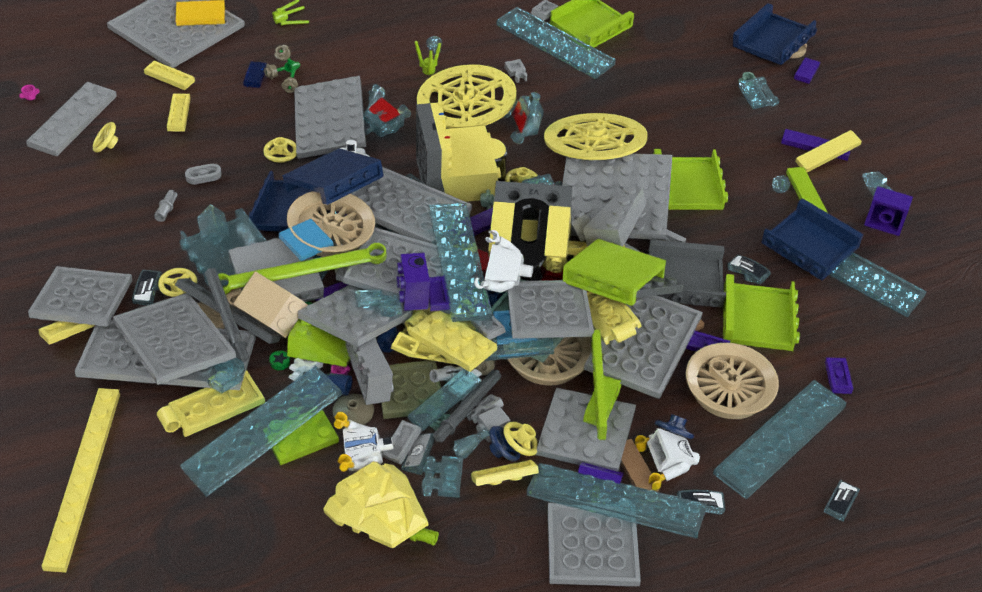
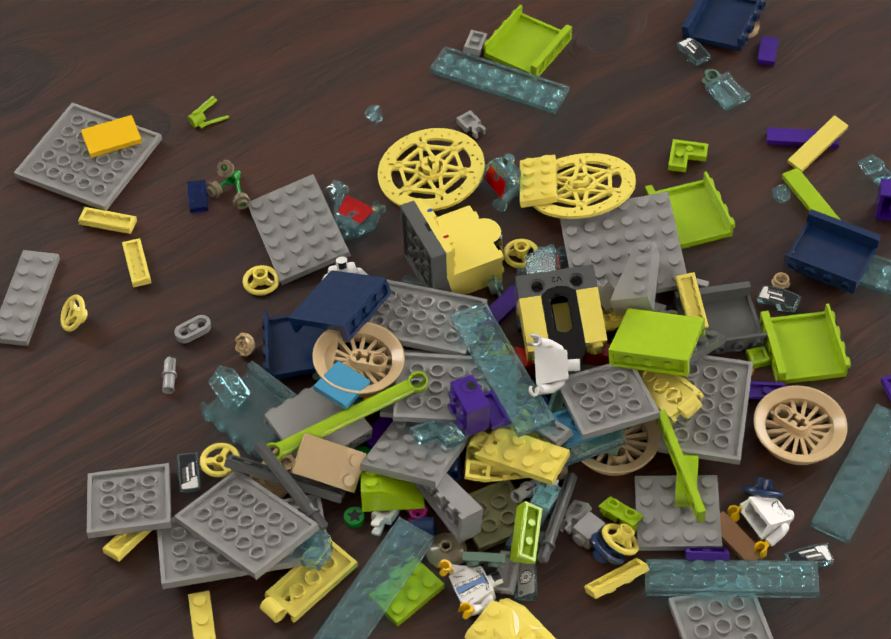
camera: 10 degrees left, 5 degrees up
(243, 195) = (245, 344): none -> tan plate
(380, 421) = (477, 558): none -> sand green plate
(428, 64) = (378, 139): lime plant -> none
(430, 410) = (526, 533): none -> lime slope
(450, 476) = (566, 596): clear light blue plate -> none
(465, 446) = (570, 560): clear light blue cone -> none
(526, 412) = (616, 510): none -> lime hinge
(558, 124) = (538, 181): none -> light yellow plate
(664, 245) = (690, 296): none -> light yellow plate
(700, 130) = (685, 150): none -> lime plate
(712, 314) = (758, 356): none -> lime tile
(738, 56) = (695, 51): none -> slope
(756, 254) = (781, 280): none -> tan plate

